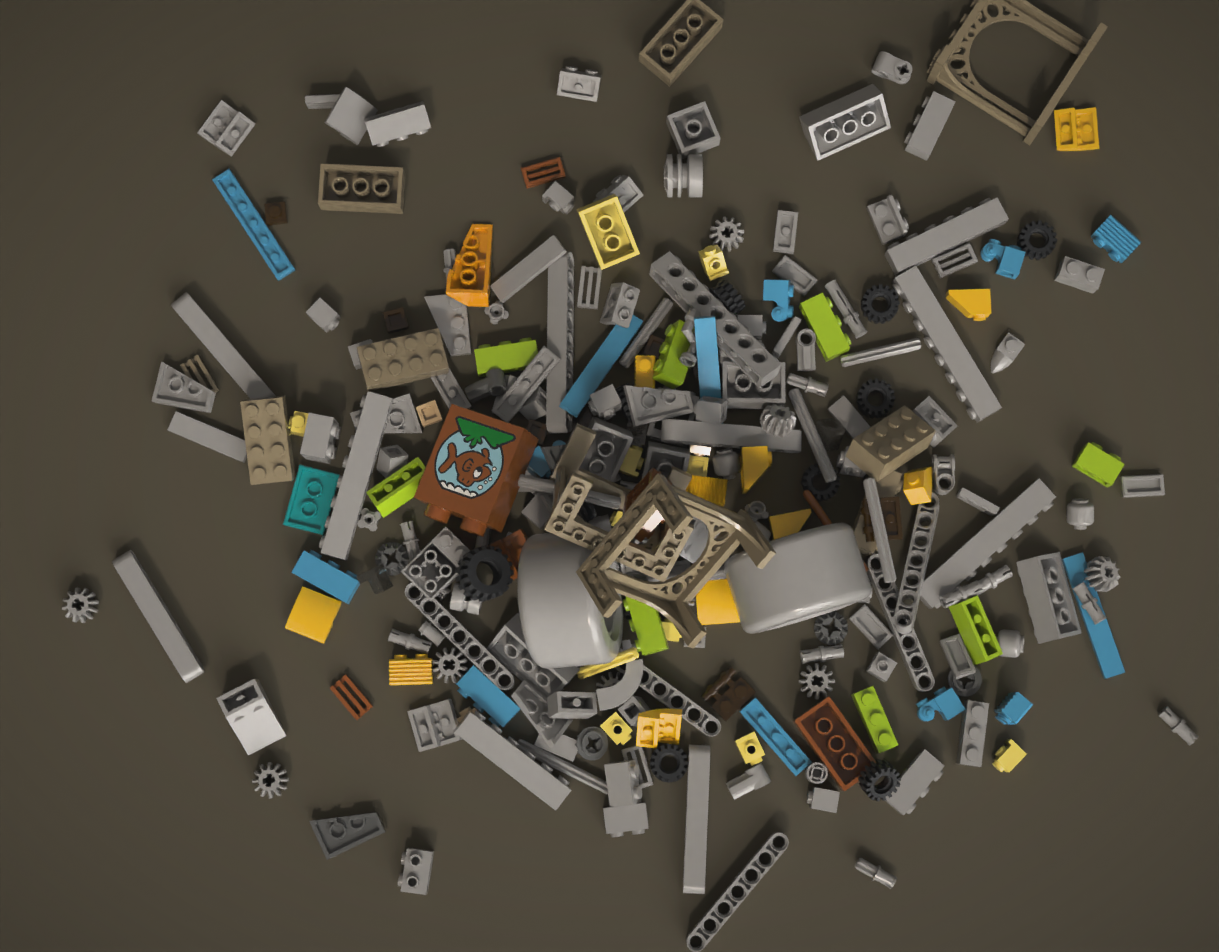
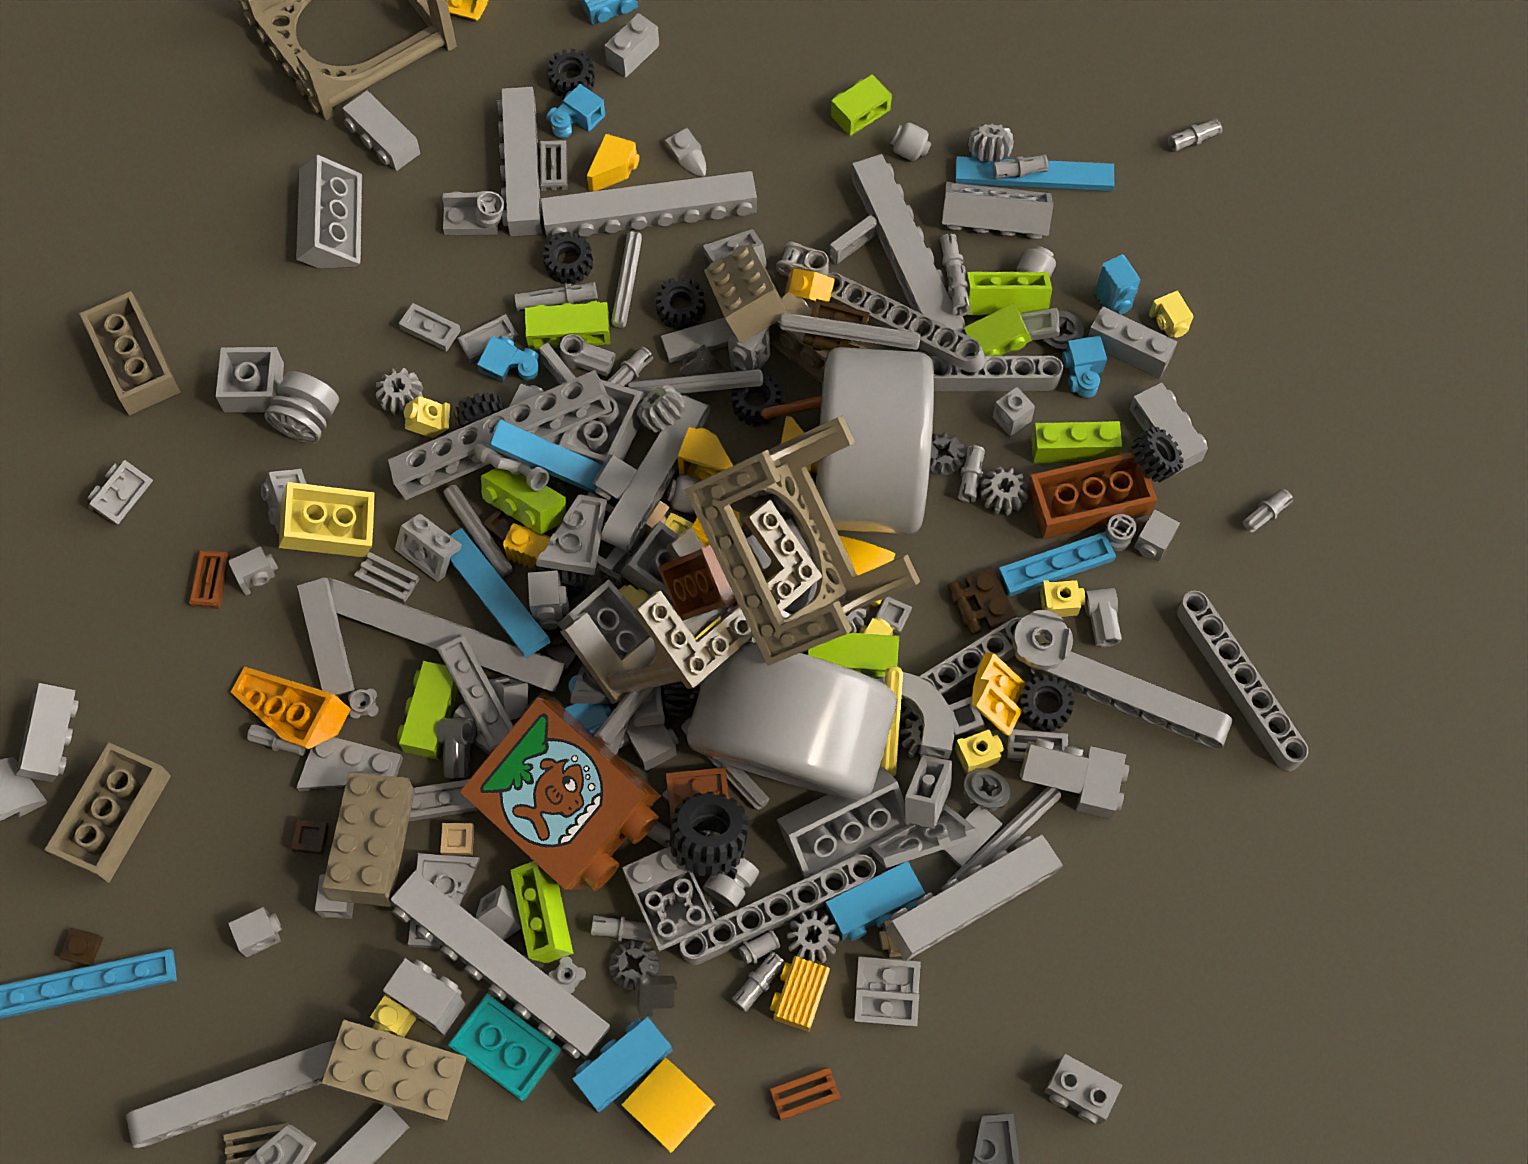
camera: 70 degrees left, 15 degrees down
(717, 751) = (1029, 650): none -> light grey plate
(871, 626) = (959, 409): light grey tile -> none
(889, 67) = (289, 146): light grey piece -> none
(894, 233) = (489, 203): none -> light grey wheel
(938, 635) = (1000, 332): none -> lime brick
(1142, 485) = (903, 74): light grey tile -> none

